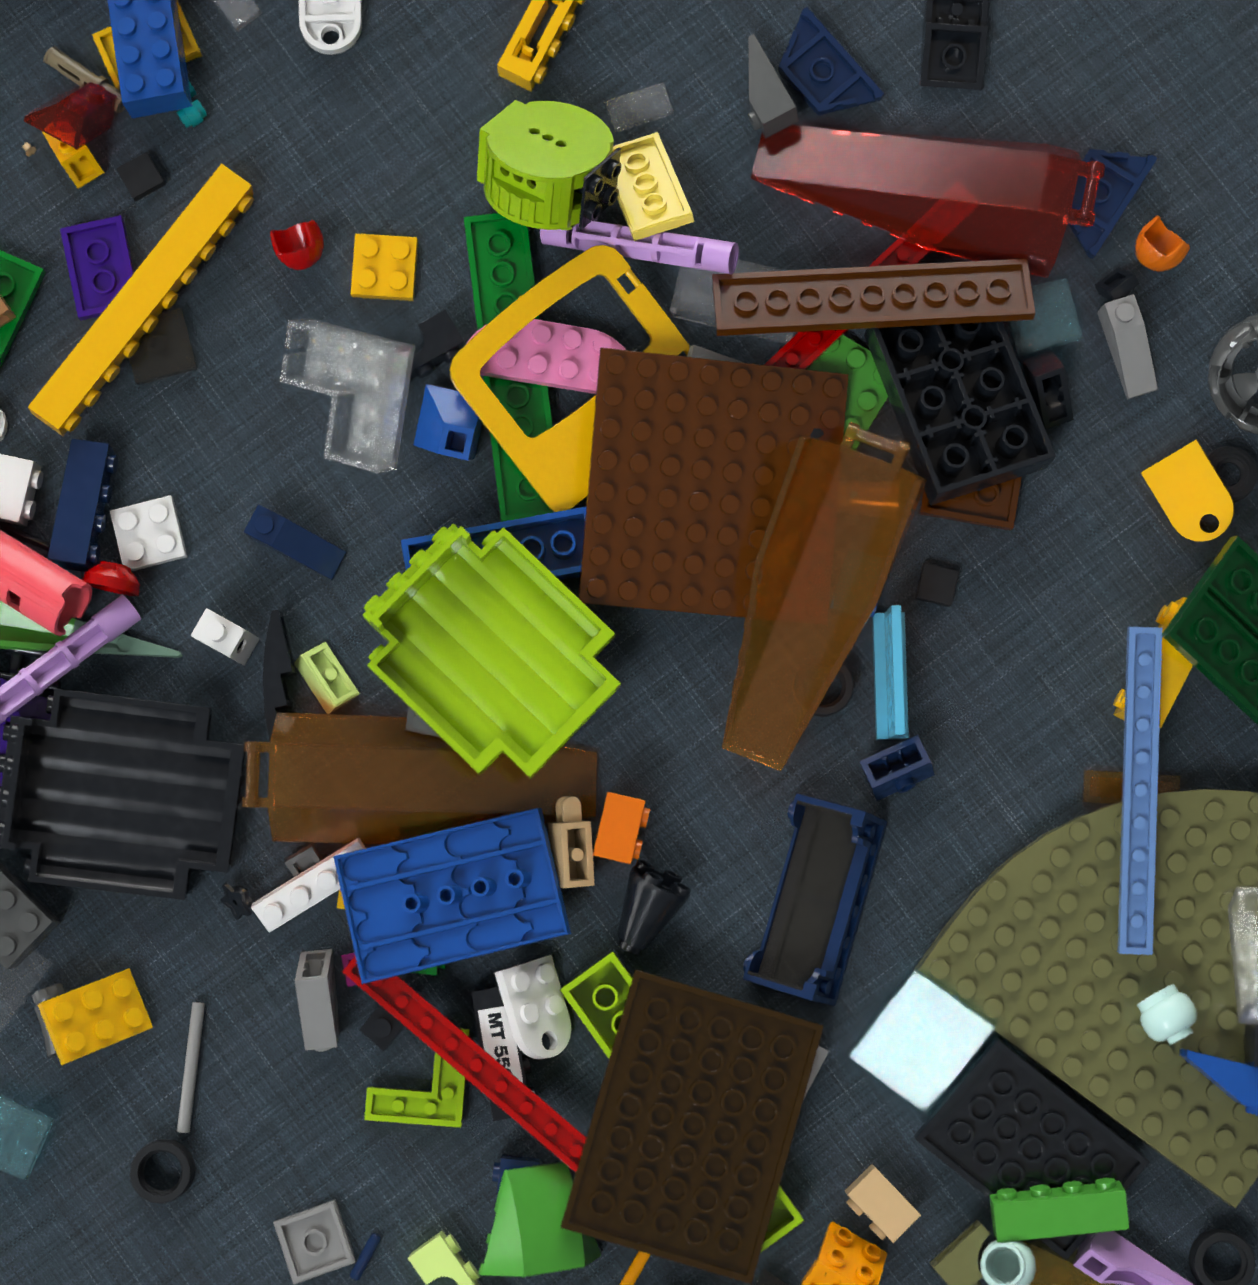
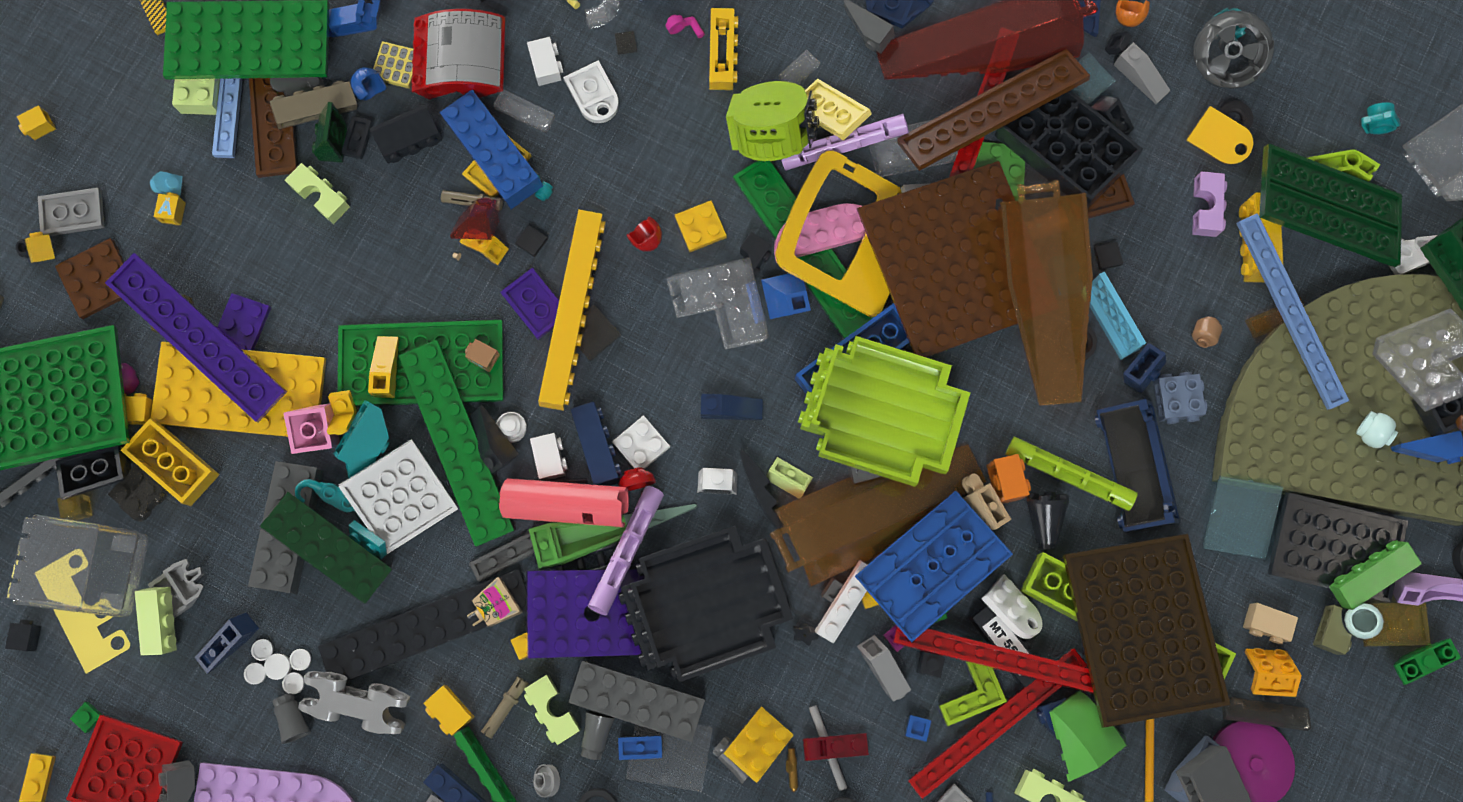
camera: 30 degrees left, 5 degrees down
(128, 1070) = (791, 768): none -> pearl gold piece
(199, 1071) = (835, 747): none -> dark red plate
(323, 1102) = (917, 728): none -> blue plate
(415, 1153) = (987, 731): none -> red plate
(714, 863) = (1072, 474): none -> lime piece
(927, 833) = (1180, 397): none -> sand blue brick
(1016, 760) = (1207, 332): none -> medium nougat head
(1136, 558) = (1212, 189): none -> lavender arch

